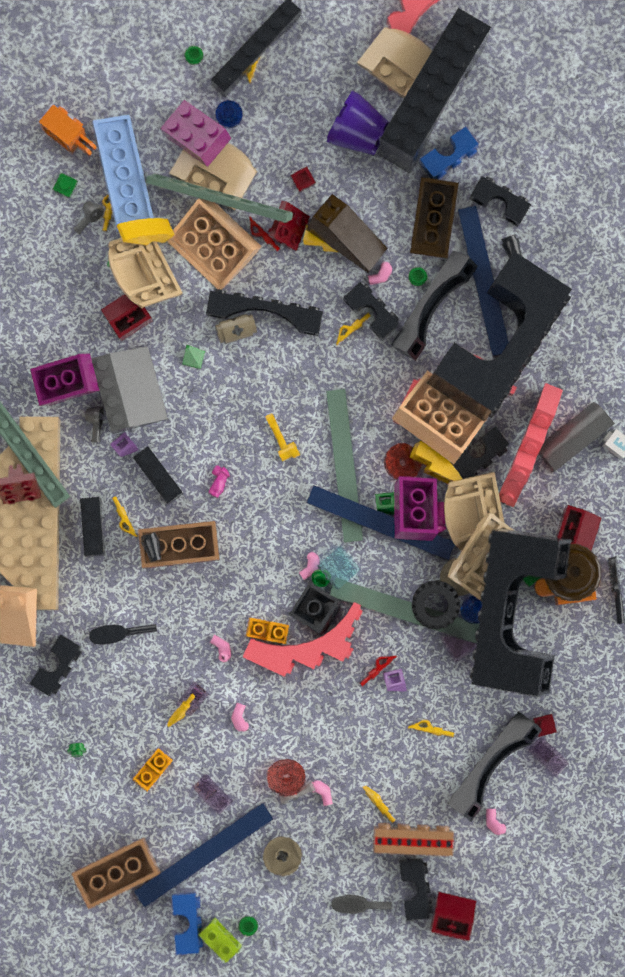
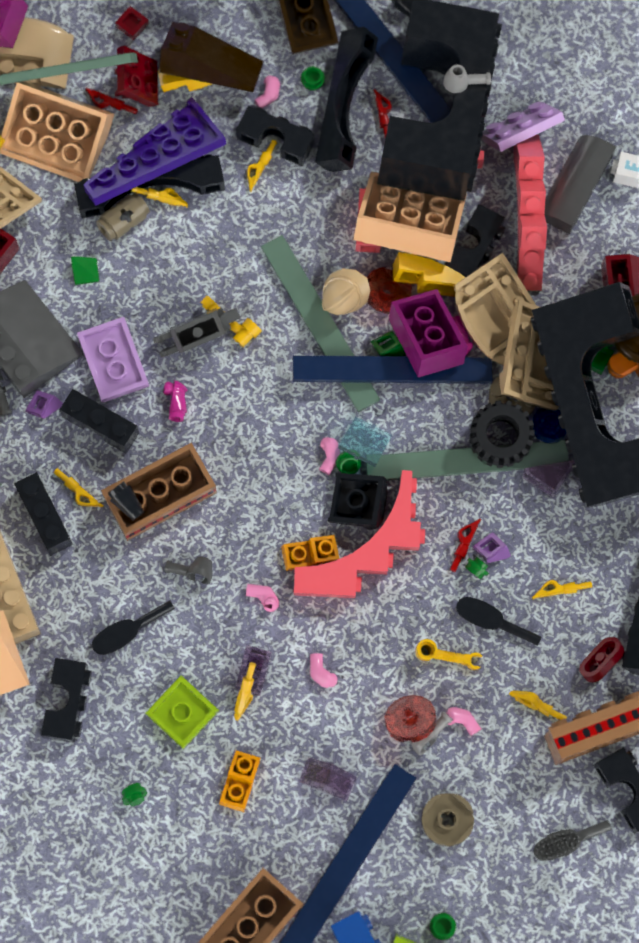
camera: 20 degrees left, 10 degrees down
(132, 706) = (182, 712): none -> lime plate
(186, 432) = (113, 359): none -> lavender plate
(187, 610) = (200, 566): none -> dark grey bar
(253, 438) = (197, 330): none -> dark grey hinge
(270, 323) = (166, 196): none -> yellow hand
(285, 291) = (162, 149): none -> dark purple wing
(327, 741) = (434, 653): none -> yellow brick
(369, 453) = (345, 292): none -> tan piece
(370, 727) = (490, 618): none -> black piece
(378, 690) = (477, 567): none -> green plate
(436, 791) = (601, 659): none -> dark red plate
(456, 328) = (382, 111): none -> red hand
(514, 337) = (457, 79): none -> light grey bar
(553, 379) = (522, 126): none -> lavender plate

